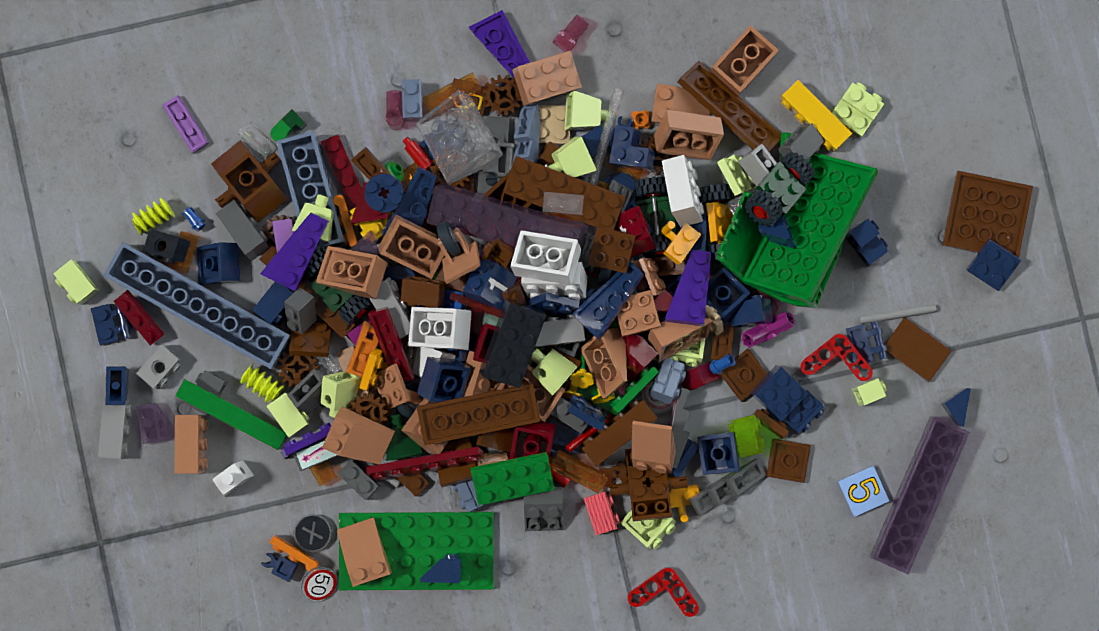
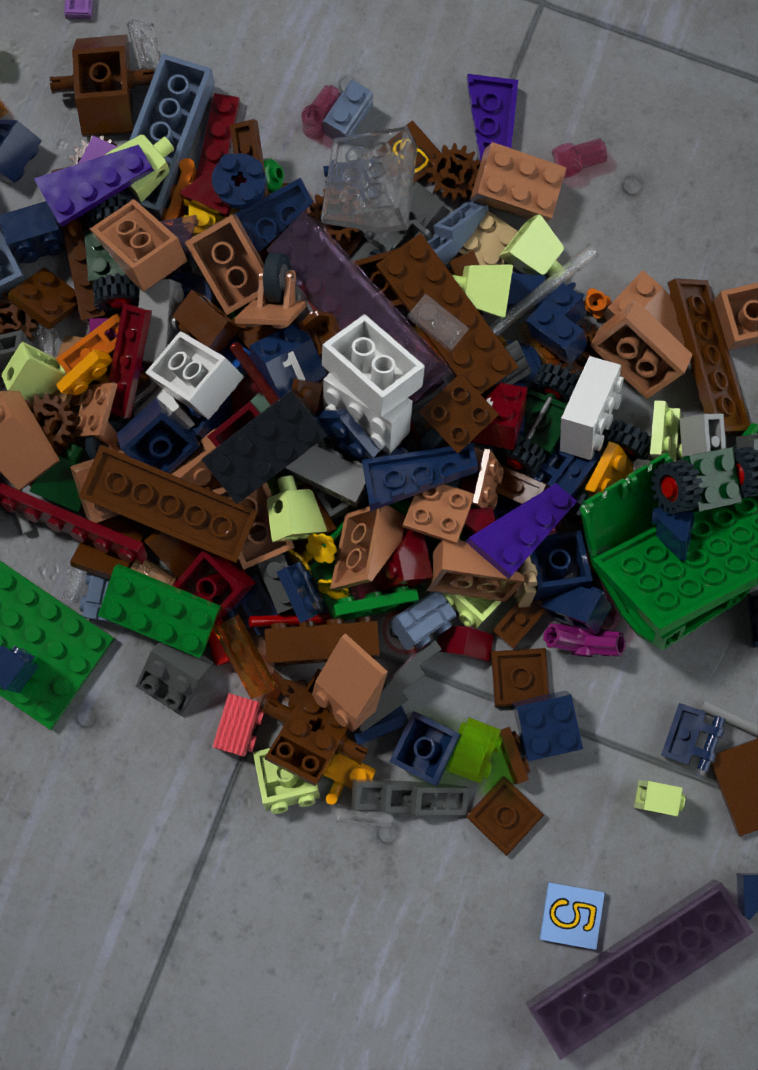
camera: 30 degrees right, 5 degrees down
(194, 219) = (14, 91): blue pin -> none
(243, 229) = (56, 129): dark grey brick -> none
(287, 126) = (191, 49): leg -> none
(300, 311) = (53, 255): dark grey brick -> none
(413, 482) = (47, 542): reddish brown plate -> none
(417, 153) = (312, 173): red cylinder -> none
(466, 84) = (422, 133): clear orange plate -> none
(661, 585) = (251, 862): red beam -> none
(681, 243) = (548, 465): light orange plate -> none
(718, 365) = (507, 645): blue pin -> none
(803, 413) = (560, 770): dark blue bracket -> none
(834, 352) = (647, 721): red beam -> none

